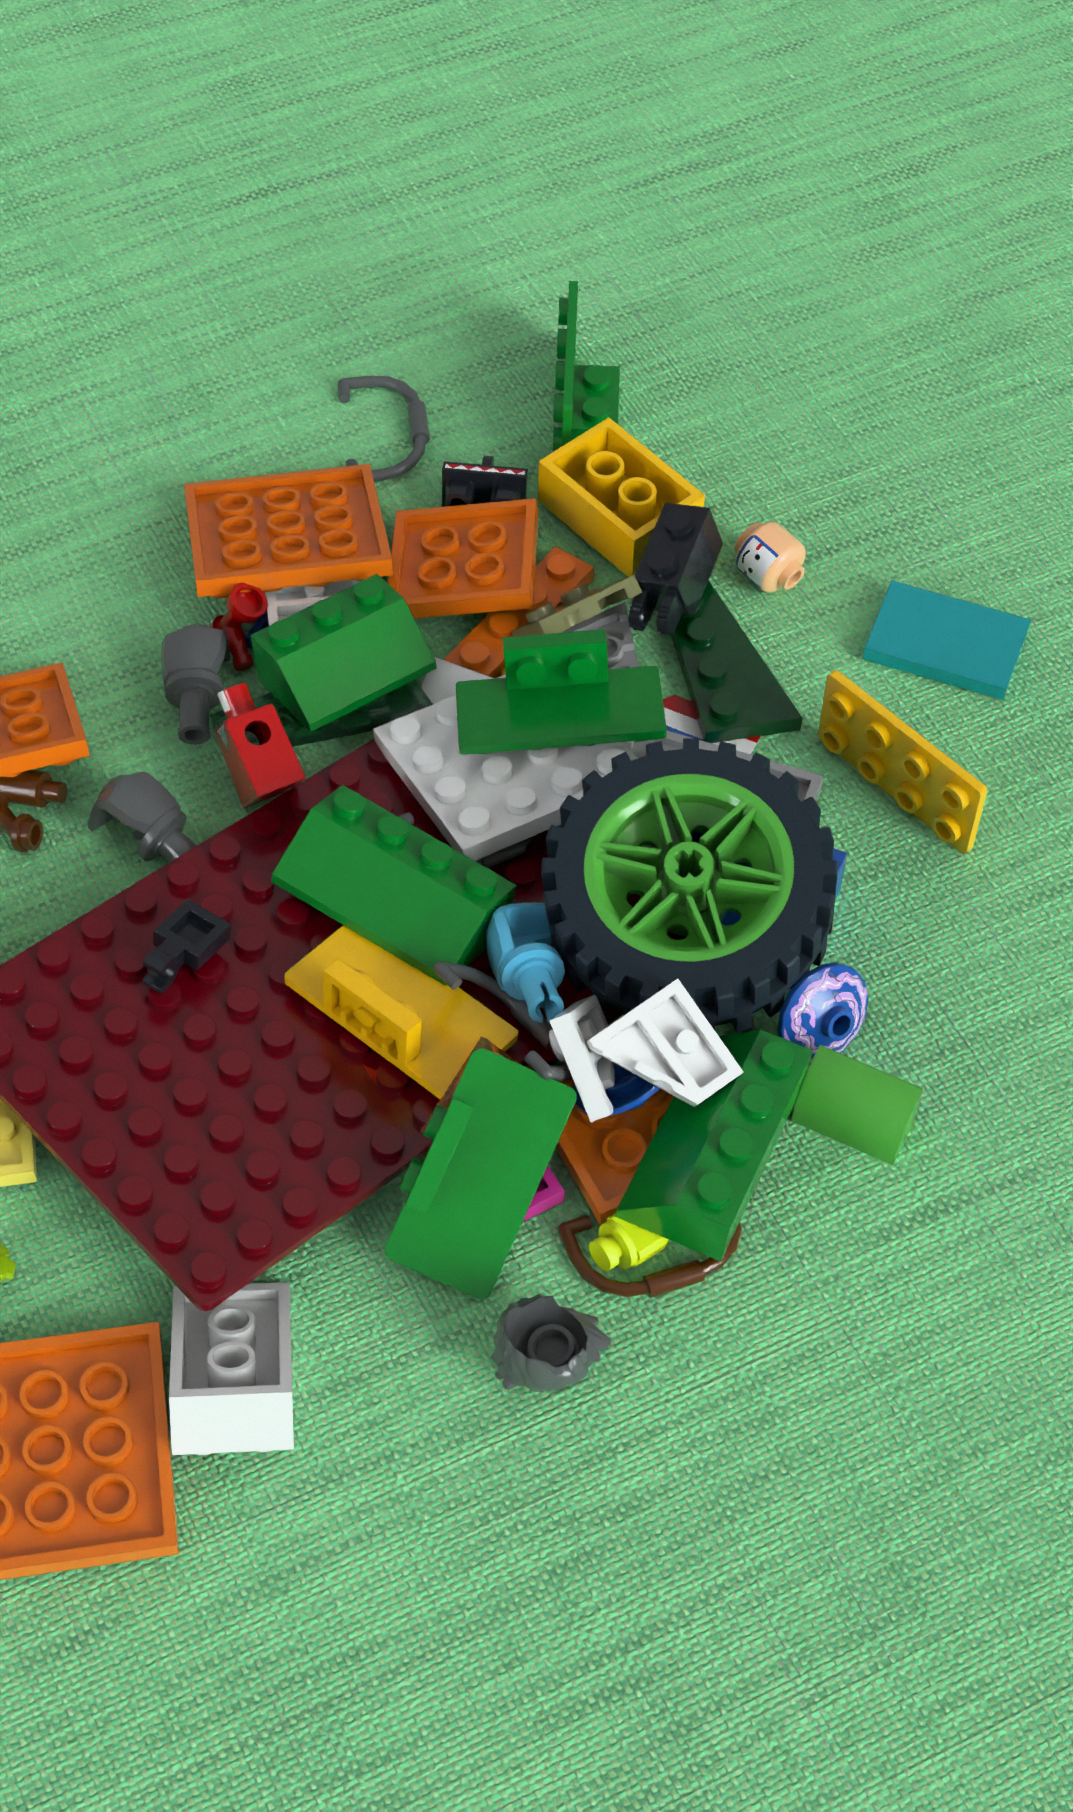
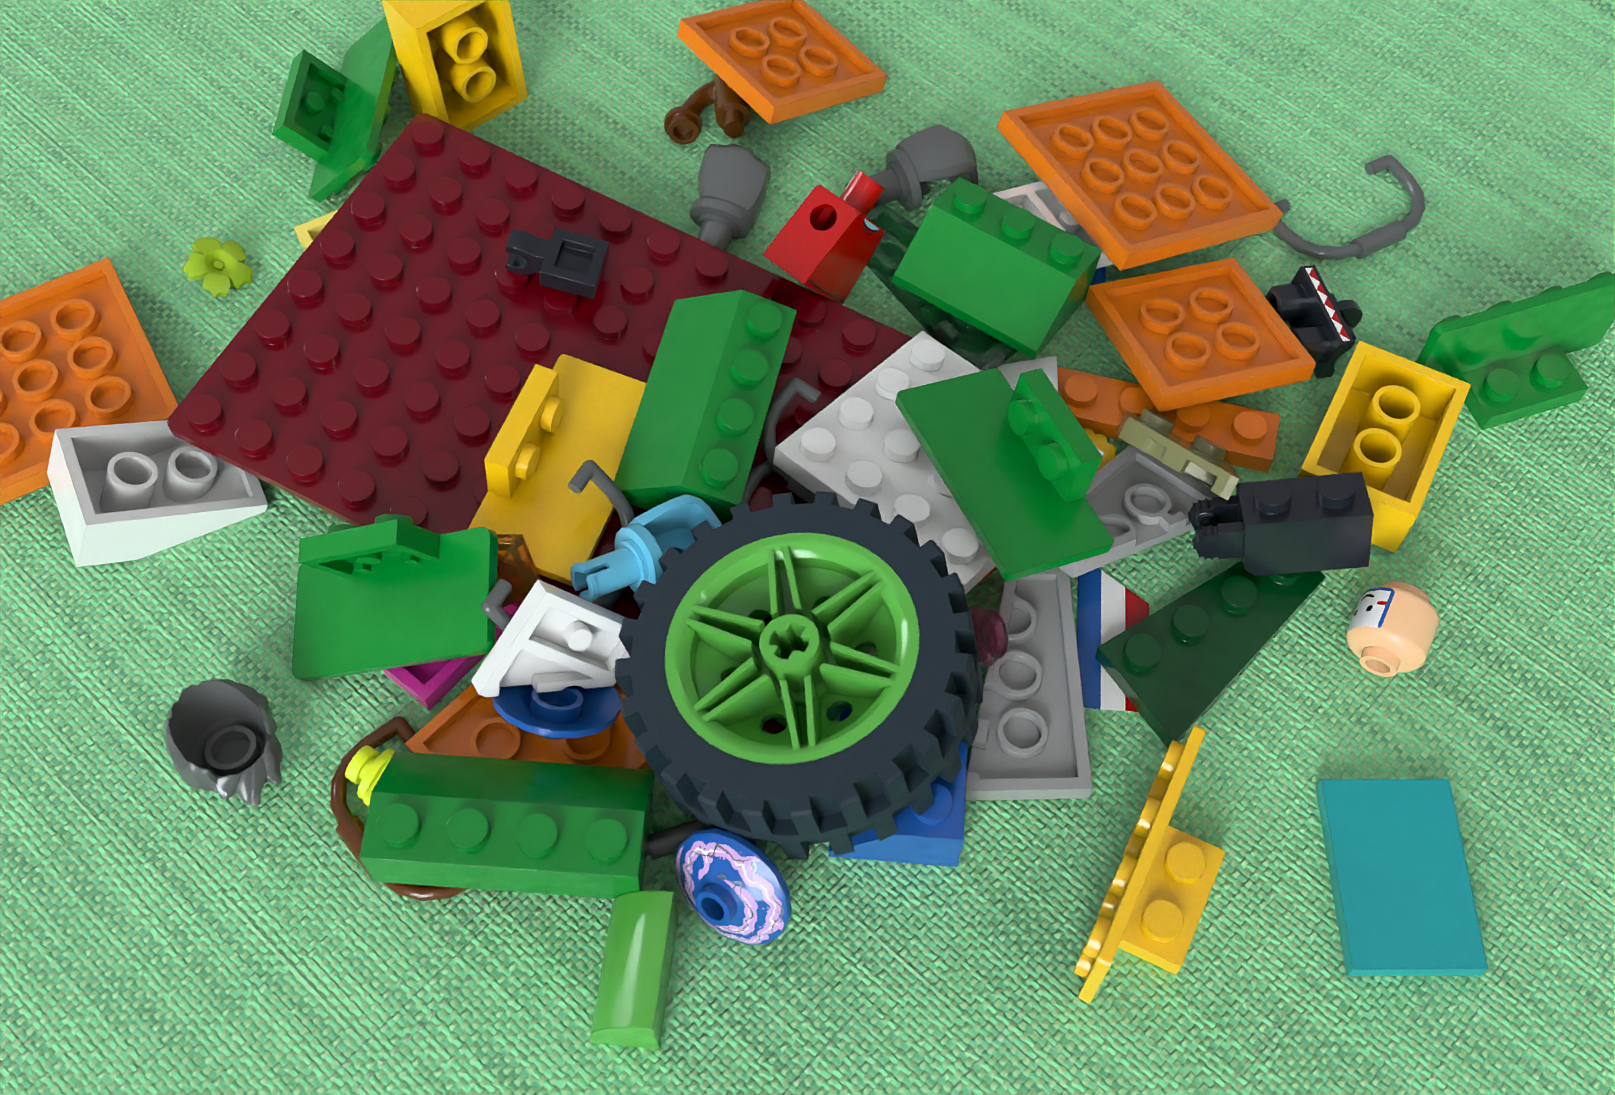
camera: 70 degrees right, 5 degrees up
(242, 608) = (1010, 169): red piece -> none
(669, 1046) = (560, 716): white wing -> none

